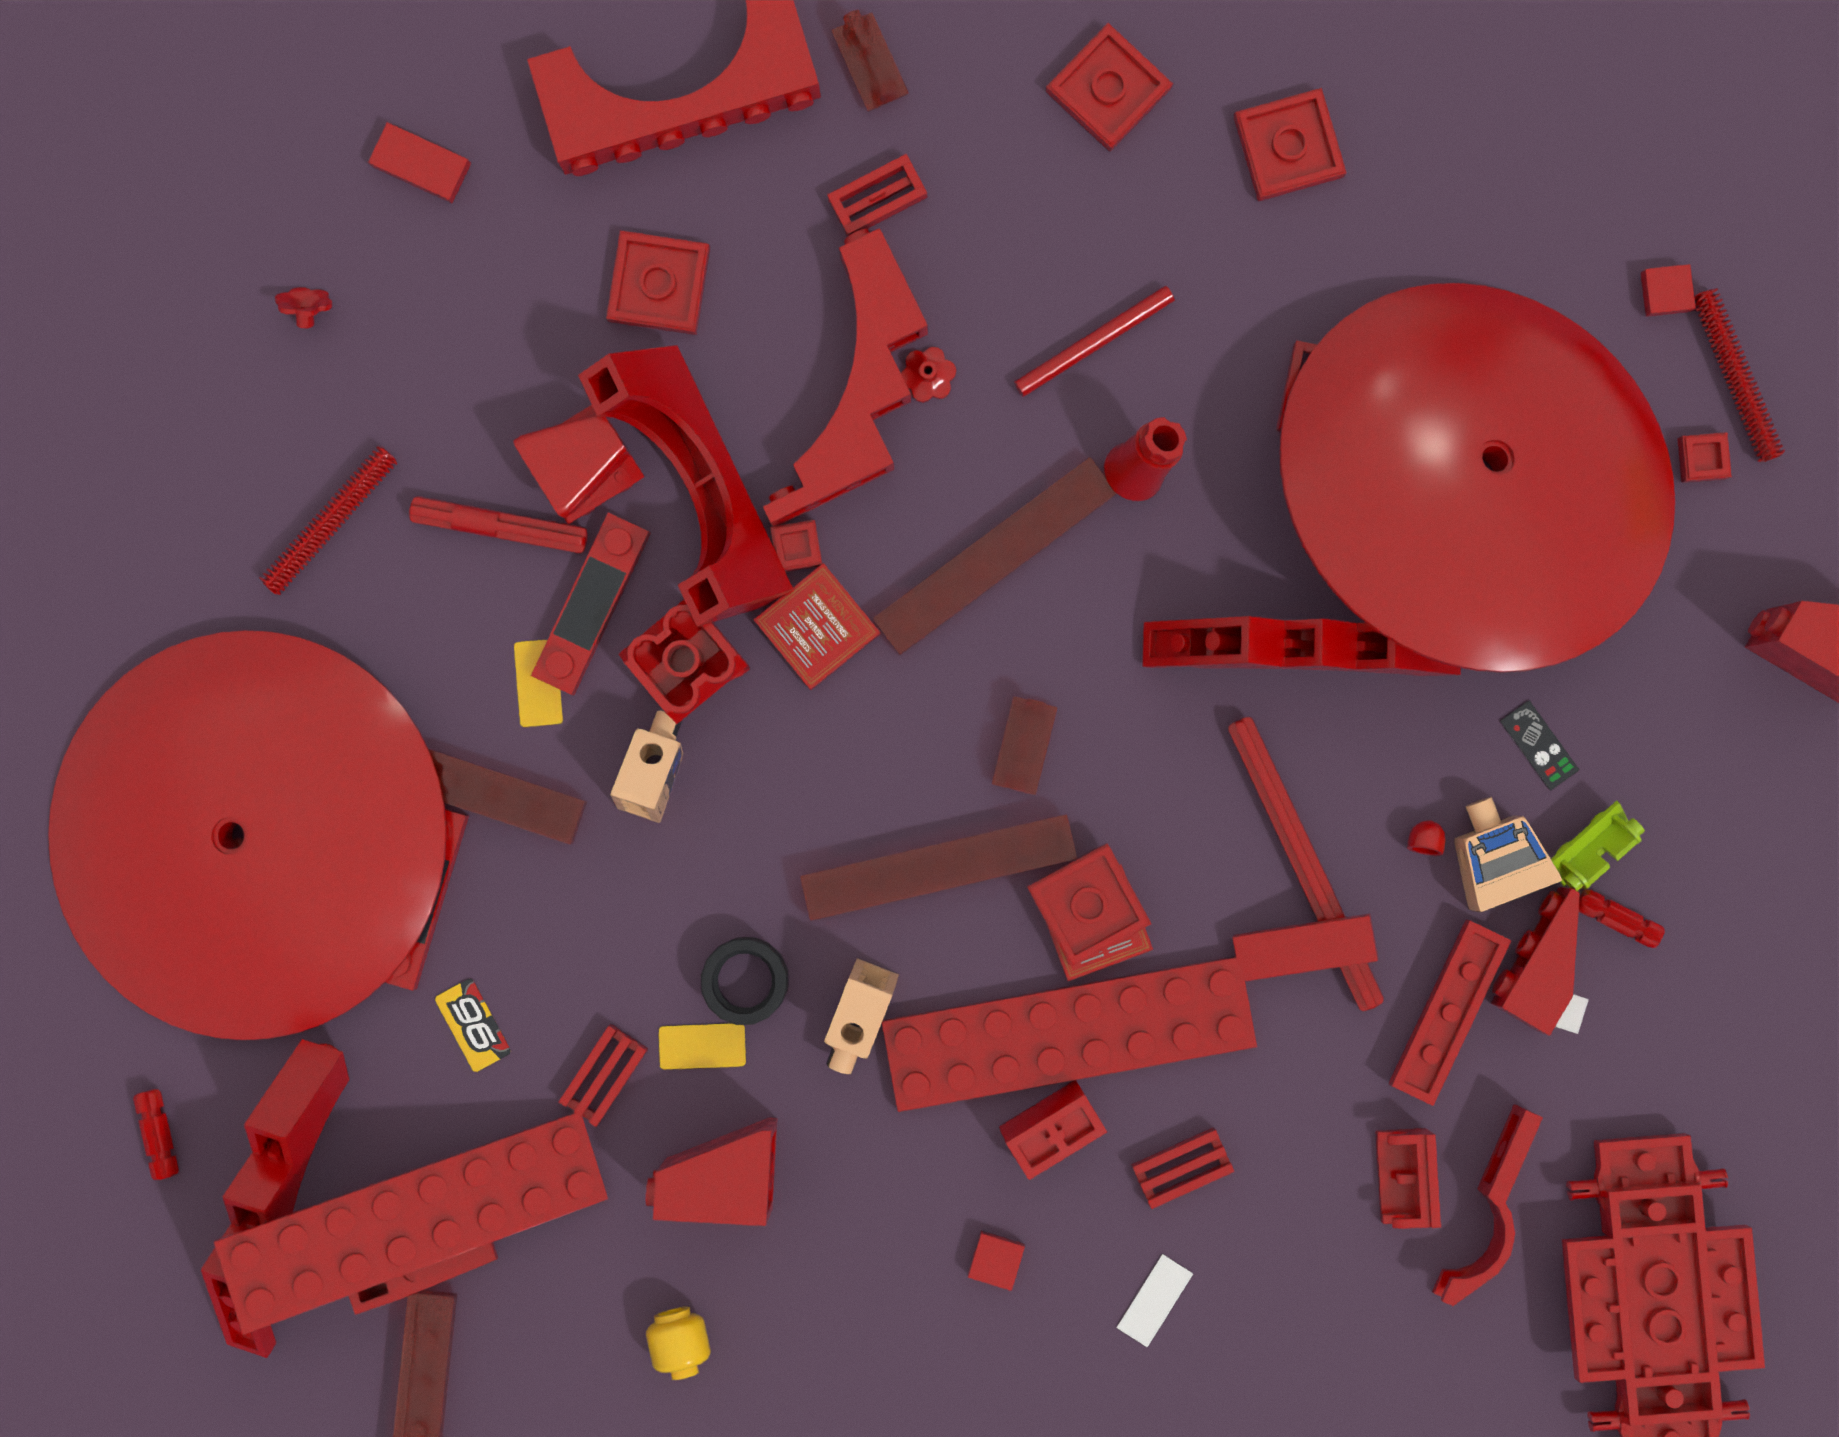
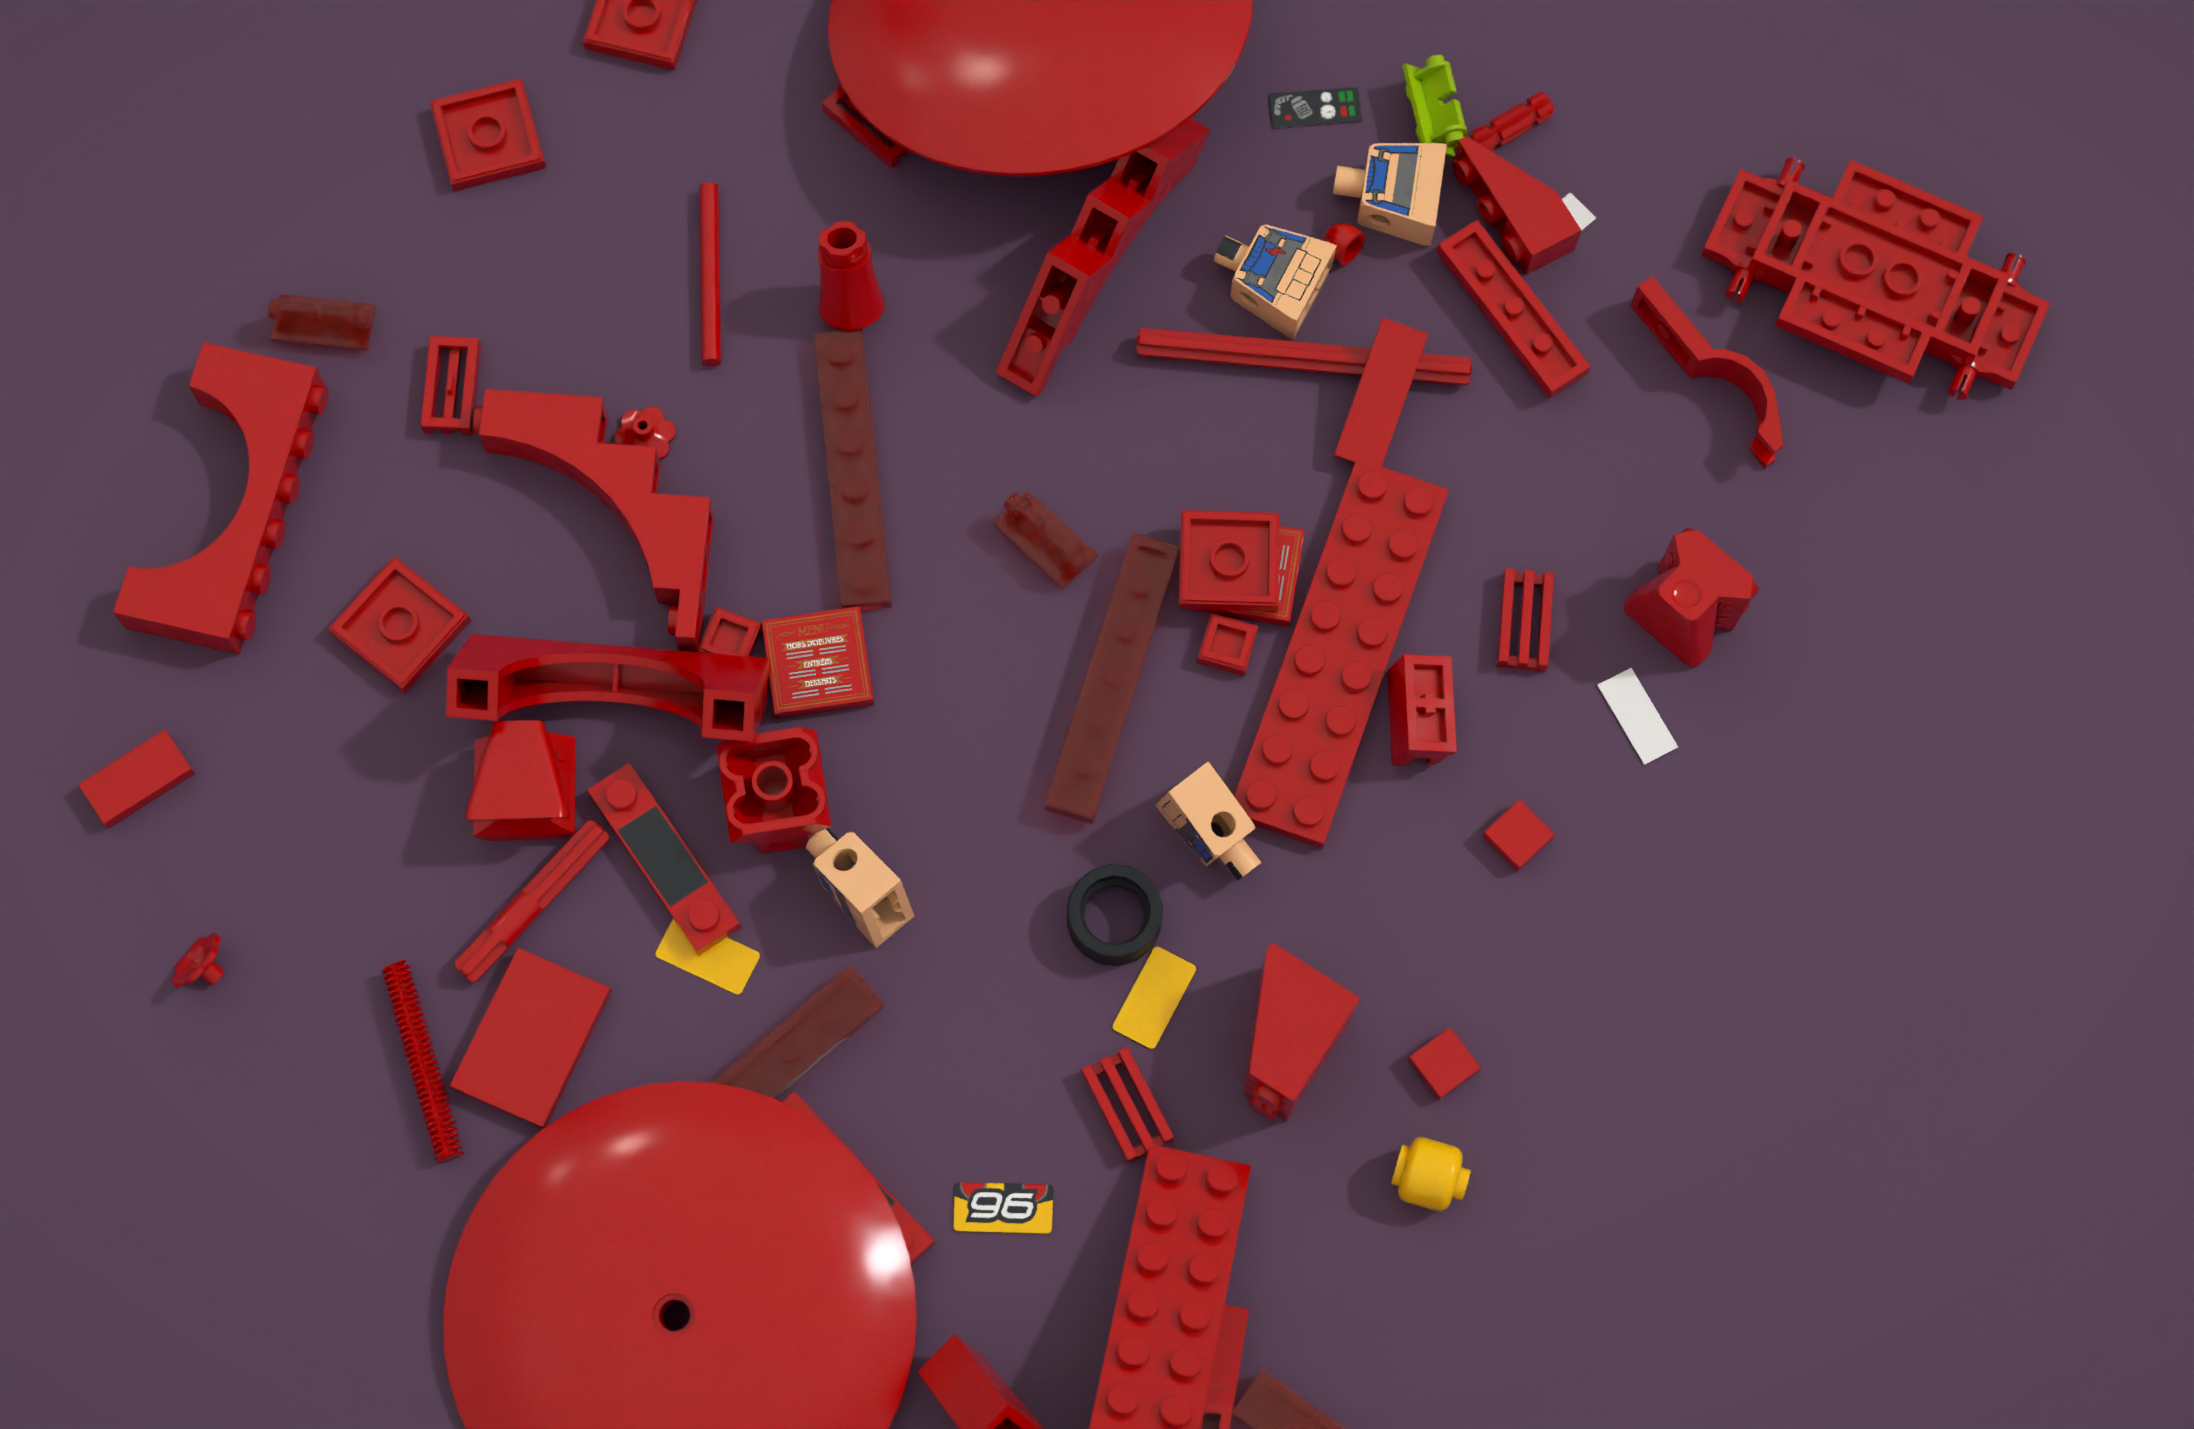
camera: 70 degrees left, 15 degrees down
(393, 590) = (531, 1038): none -> red tile
(776, 1302) = (1444, 1063): none -> red tile
(1022, 941) = (1227, 644): none -> red tile
(1273, 1298) = (1692, 595): none -> red piece
(1363, 802) = (1277, 275): none -> light nougat torso
(1408, 1178) = (1645, 425): red hinge -> none

